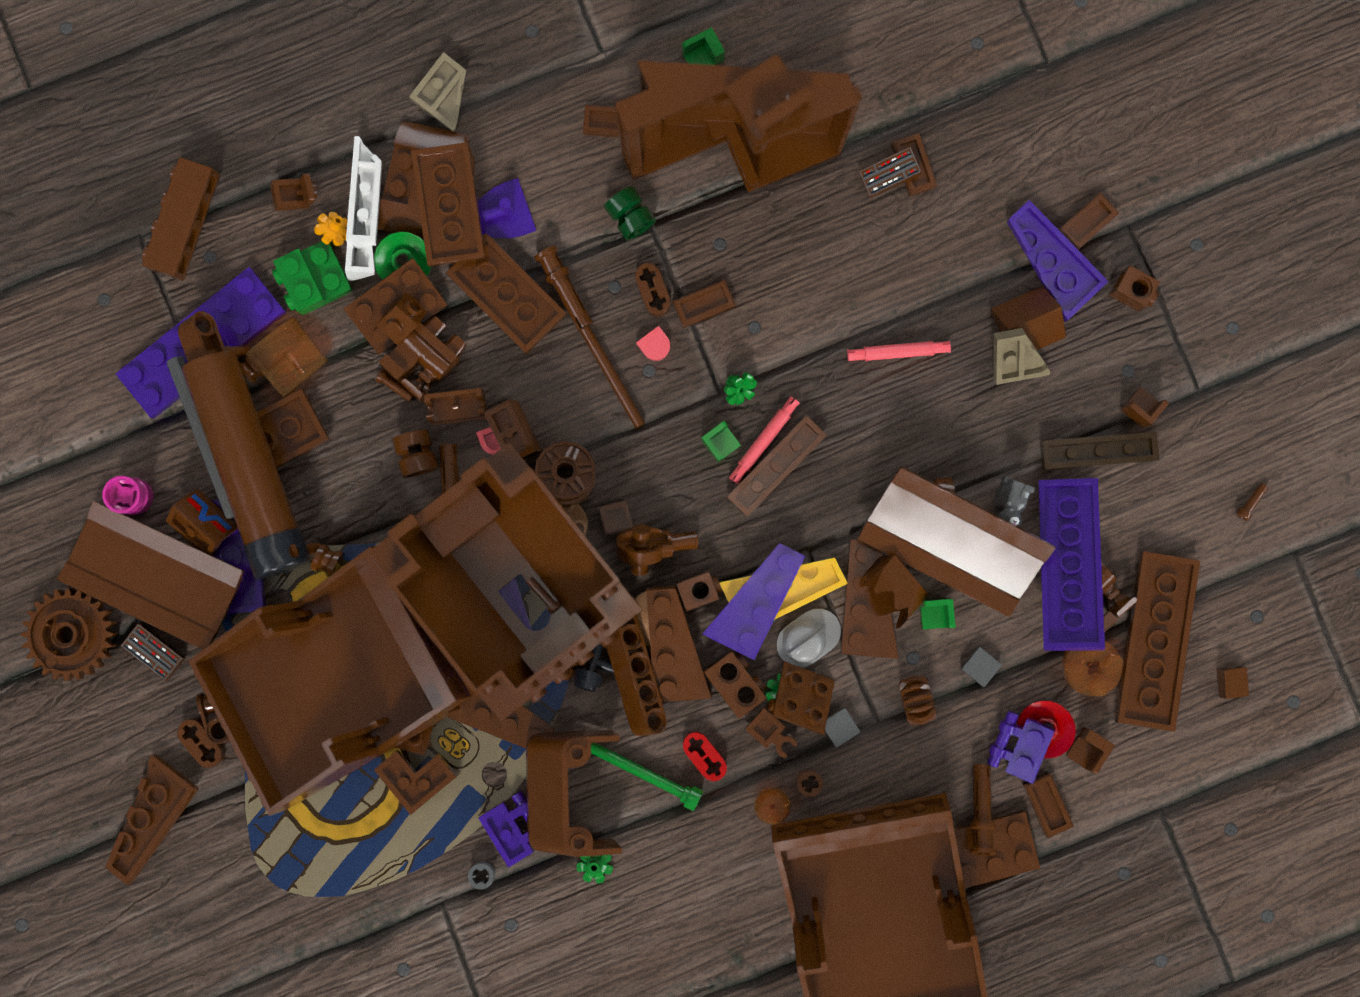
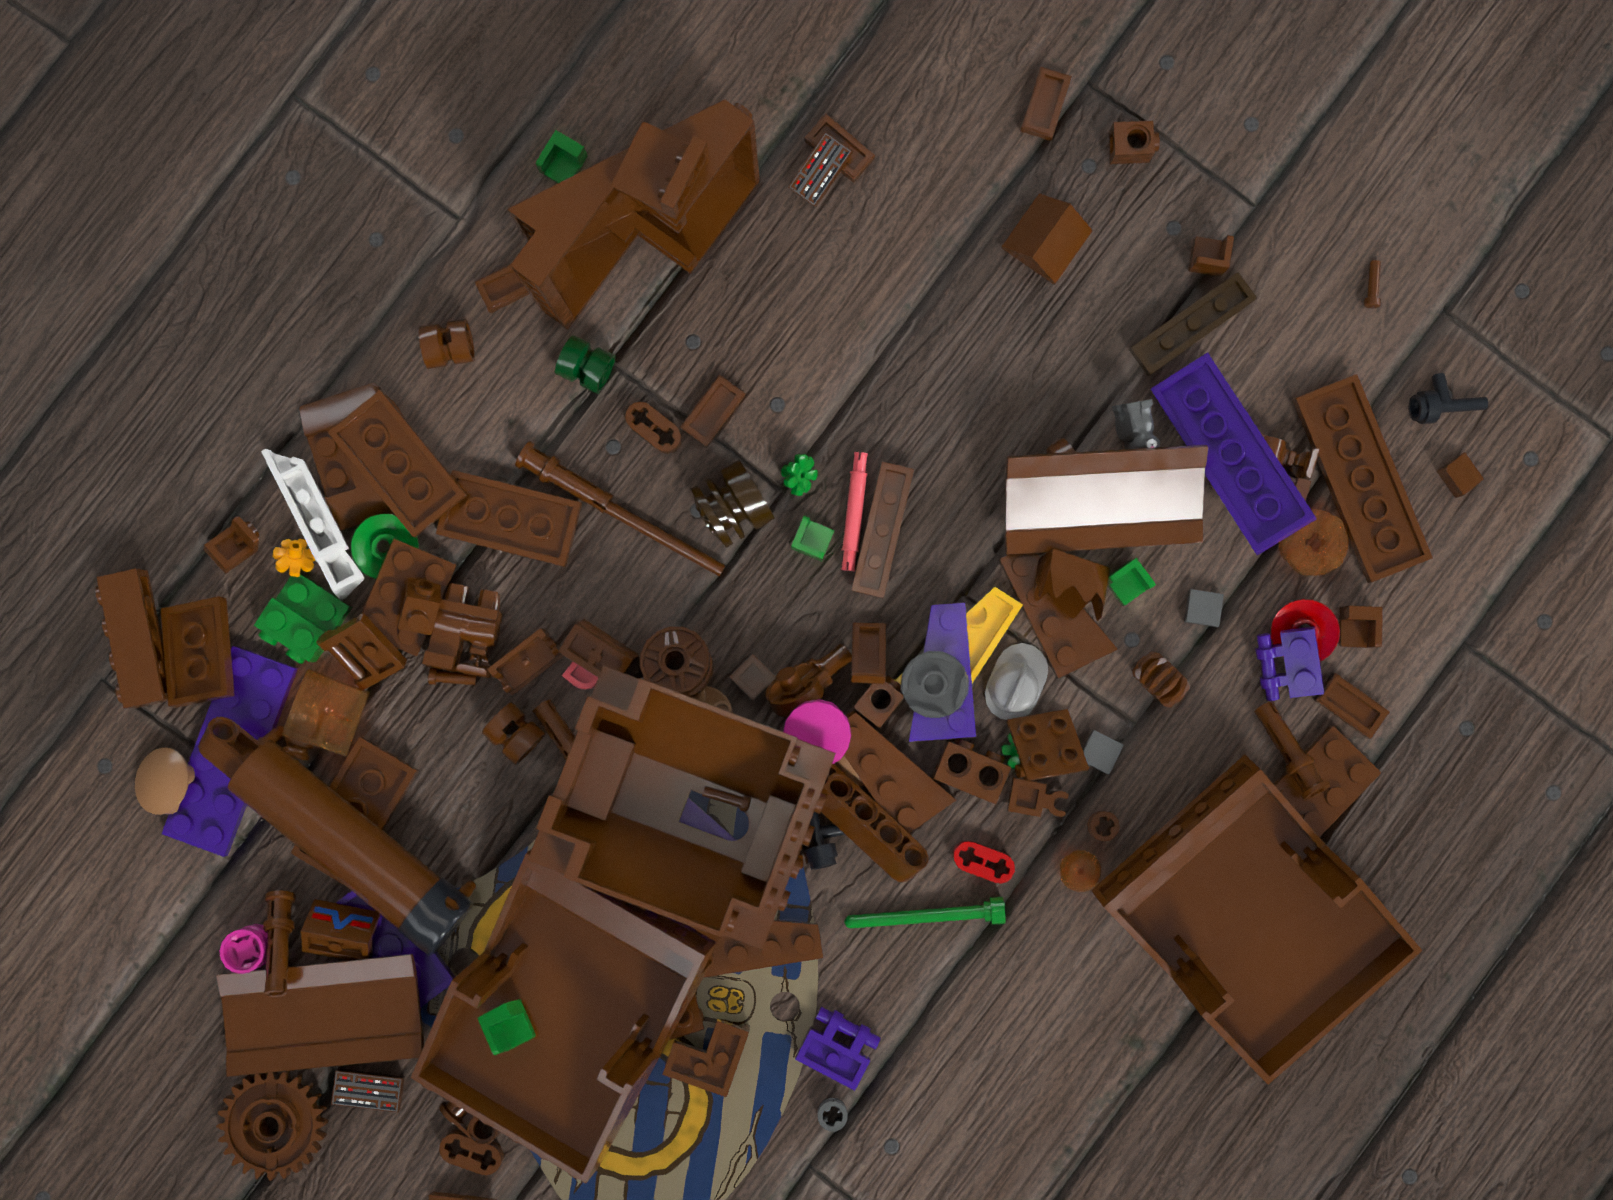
camera: 30 degrees left, 0 degrees up
(139, 335) = (163, 781): none -> medium nougat dish
(158, 493) = (278, 928): none -> reddish brown pin
(175, 367) = (219, 790): dark grey axle -> none
(220, 256) = (197, 652): none -> reddish brown plate
(280, 666) = (506, 1027): none -> green panel
(327, 560) = (489, 893): reddish brown wheel -> none
(346, 325) = (368, 647): none -> reddish brown plate
(441, 91) = (322, 354): dark tan wing -> none
(505, 212) = (458, 436): dark purple shield -> none
(537, 138) = (446, 344): none -> reddish brown wheel
(547, 793) = (849, 991): reddish brown windscreen -> none
(602, 867) = (936, 1029): green plant -> none
(643, 582) = (820, 725): none -> dark pink tile
(655, 345) = (686, 478): coral tile -> none
(676, 380) = (732, 504): none -> dark brown wheel
(711, 550) = (868, 653): none -> reddish brown tile
(746, 603) = (935, 684): none -> dark grey tile
(899, 350) = (935, 342): coral piece -> none
(1016, 358) = (1056, 280): dark tan wing -> none
(1055, 260) = (1037, 160): dark purple wing -> none
(1240, 616) = (1428, 405): none -> black piece

